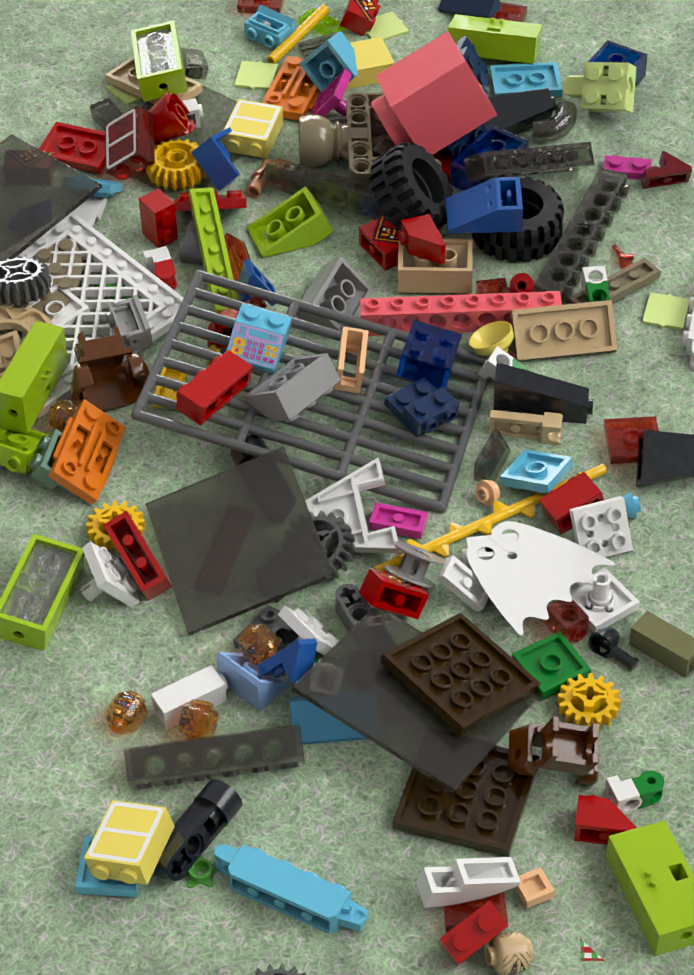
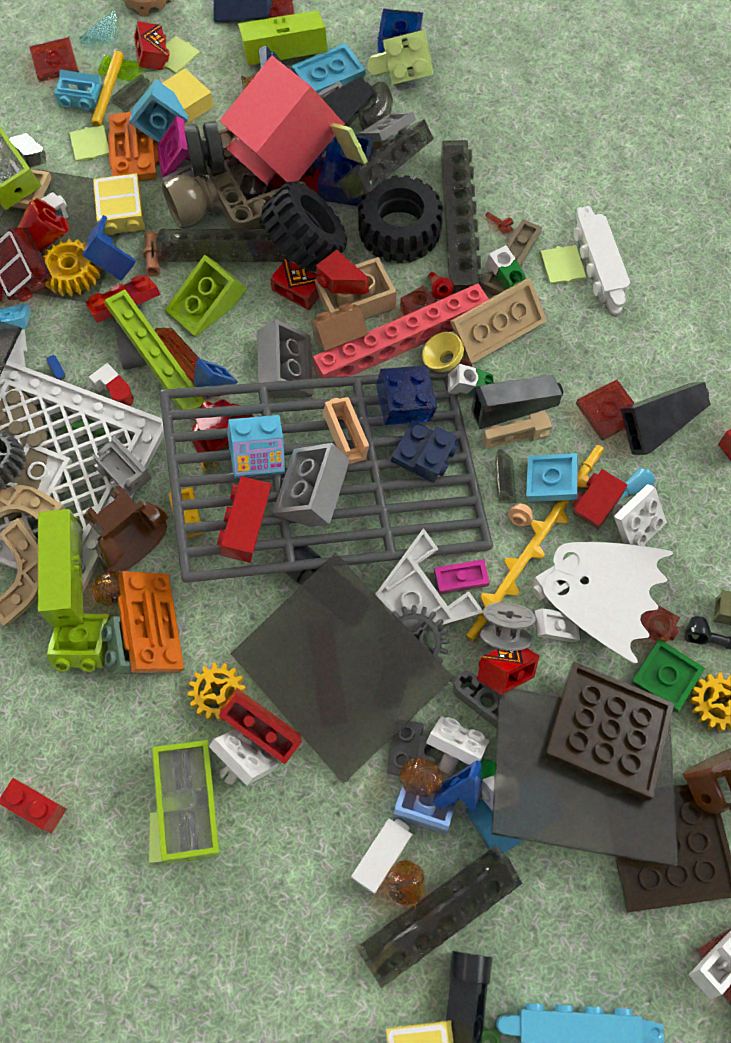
camera: 25 degrees left, 20 degrees up
(117, 235) = (55, 367): none -> blue tile
(126, 712) = (333, 899): clear orange head -> none
(158, 218) = (85, 335): red brick -> none
(351, 97) = (205, 148): none -> pearl dark grey wheel
(398, 280) = (339, 326): none -> medium nougat slope
(487, 207) = (383, 224): blue slope -> none
(490, 129) = (349, 143): none -> yellowish green piece
(555, 138) = (389, 125): none -> light grey plate
(603, 595) = (678, 581): white plate -> none
(631, 166) = (456, 129): dark pink plate -> none
(670, 172) = (495, 123): dark red slope -> none

